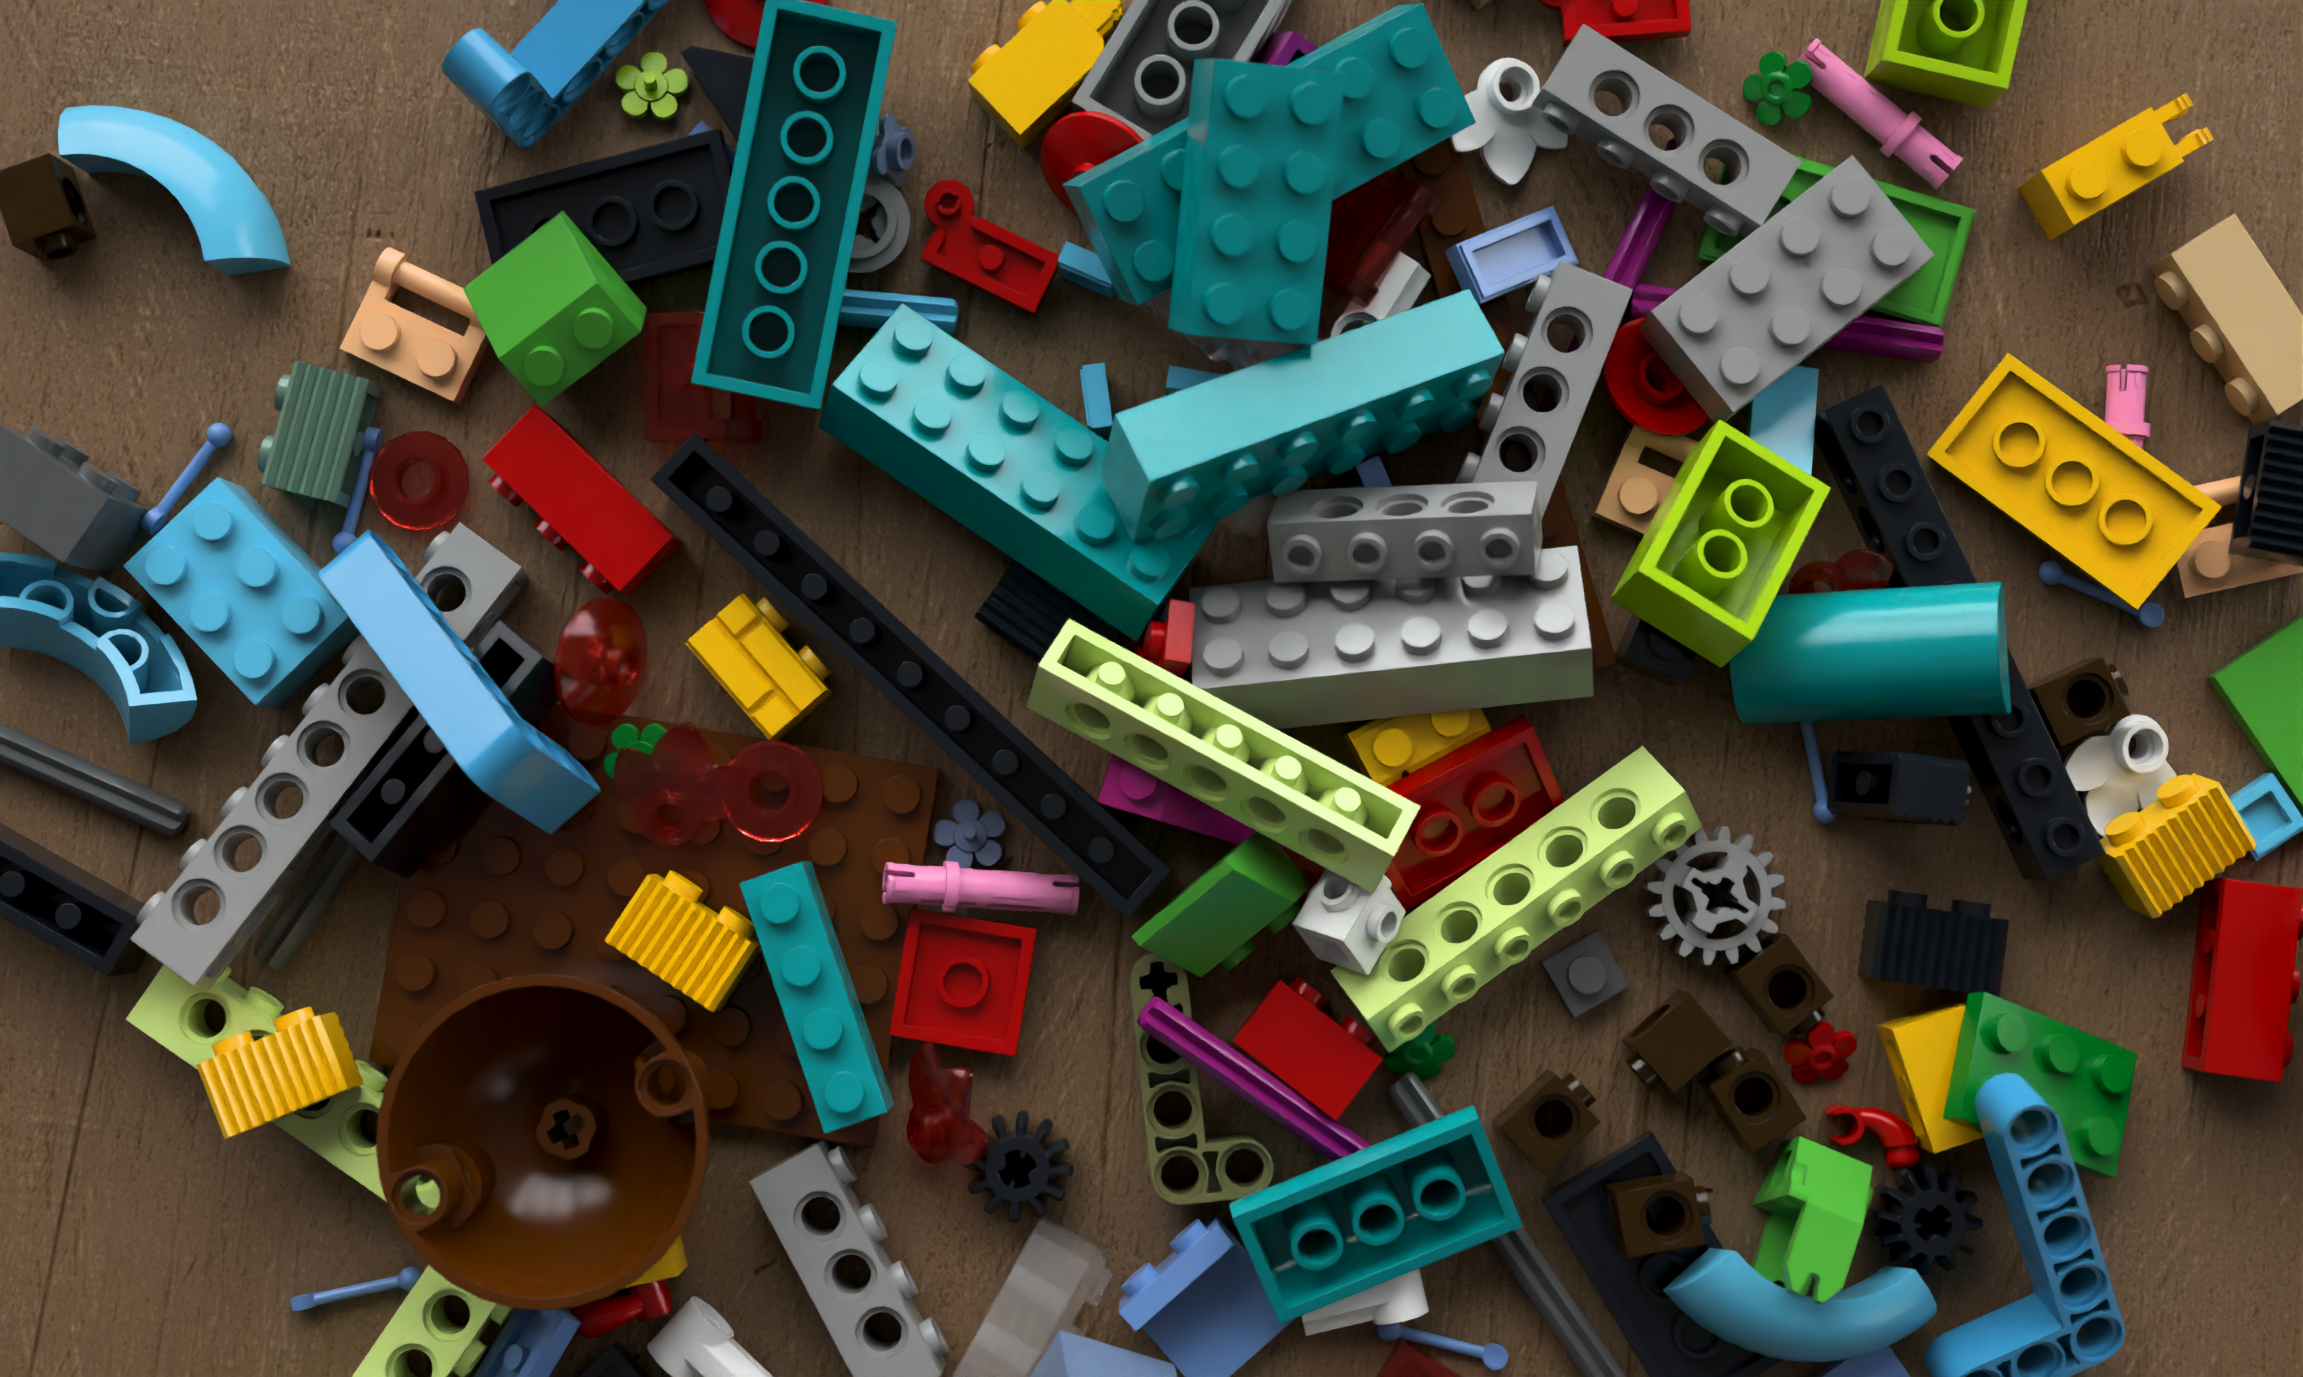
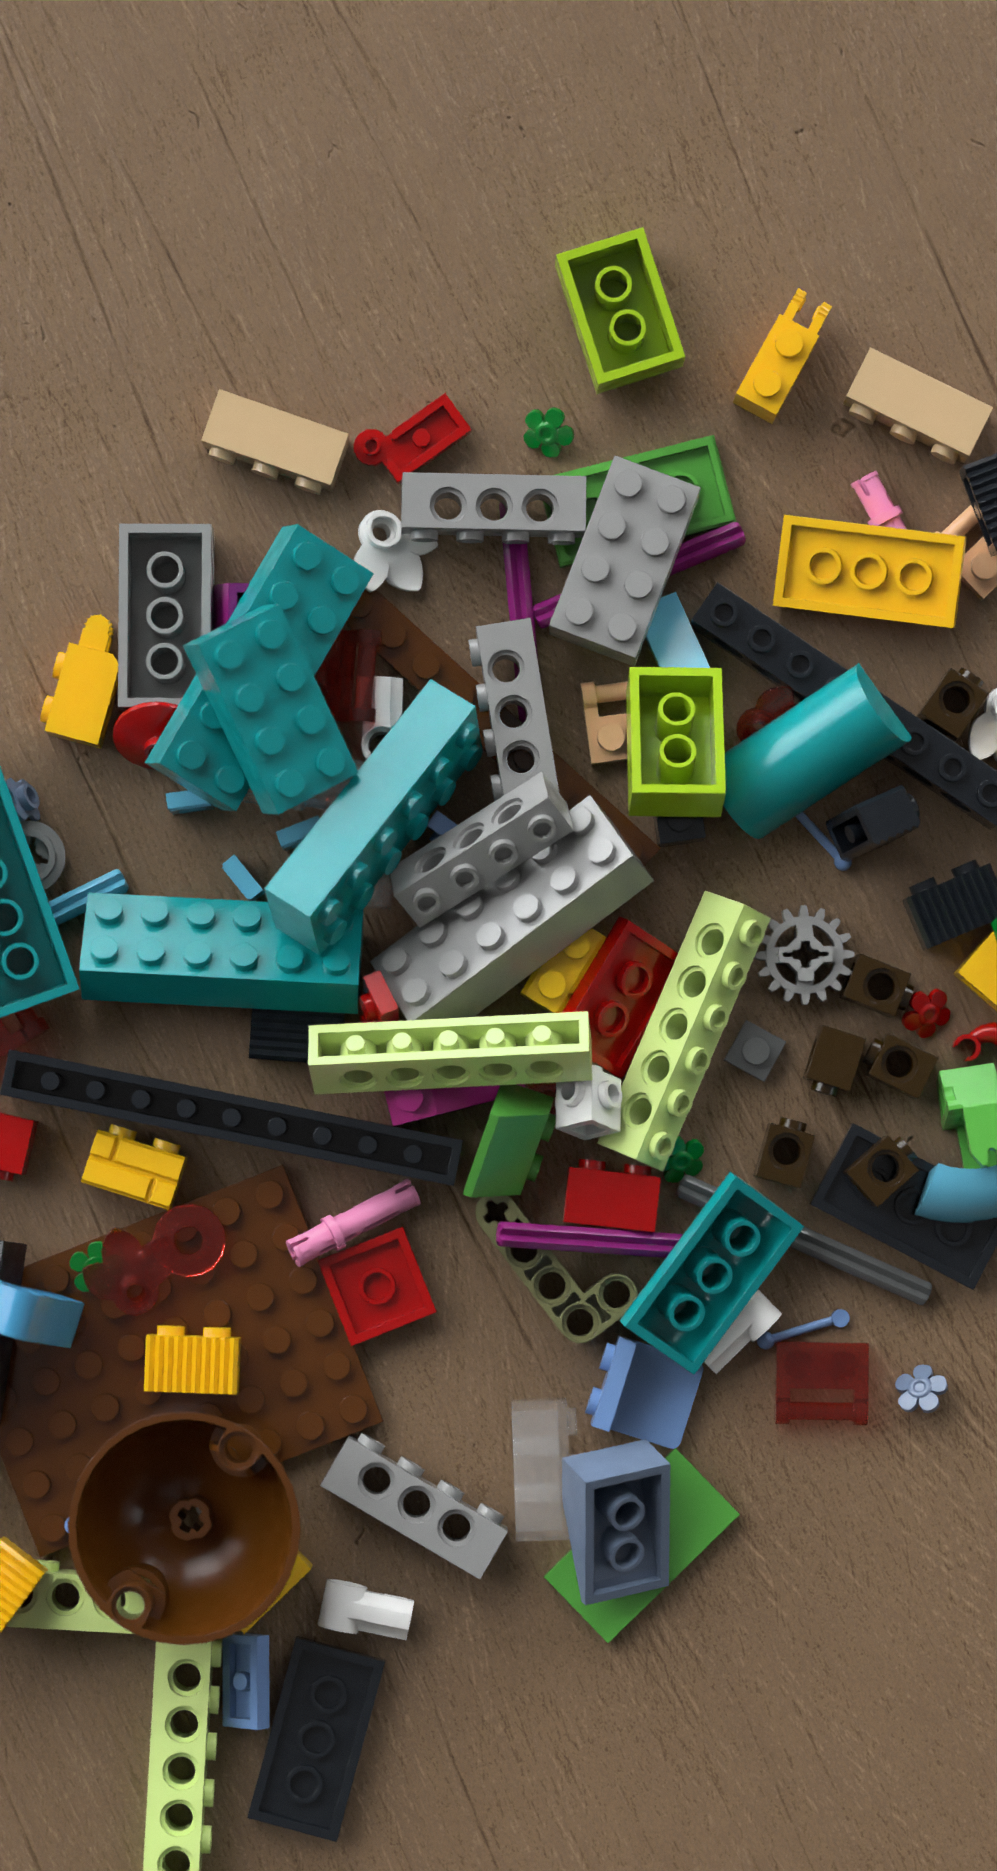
camera: 40 degrees left, 0 degrees up
(405, 1281) = (145, 1676): medium blue hinge -> none
(600, 661) = (35, 1224): clear red dish -> none
(604, 1315) = (279, 1624): red arm -> none
(817, 996) = (293, 1346): teal brick -> none
(940, 1111) = (411, 1373): clear red plate -> none
(971, 835) = (327, 1194): sand blue plant -> none
(984, 252) = (117, 829): red hinge -> none
(1039, 1180) = (463, 1379): black gear -> none
(1511, 255) = (445, 636): medium blue tile -> none
(1625, 373) = (557, 669): red dish -> none
(1880, 116) = (619, 412): bright pink pin -> none
(2146, 616) = (894, 630): medium blue hinge -> none

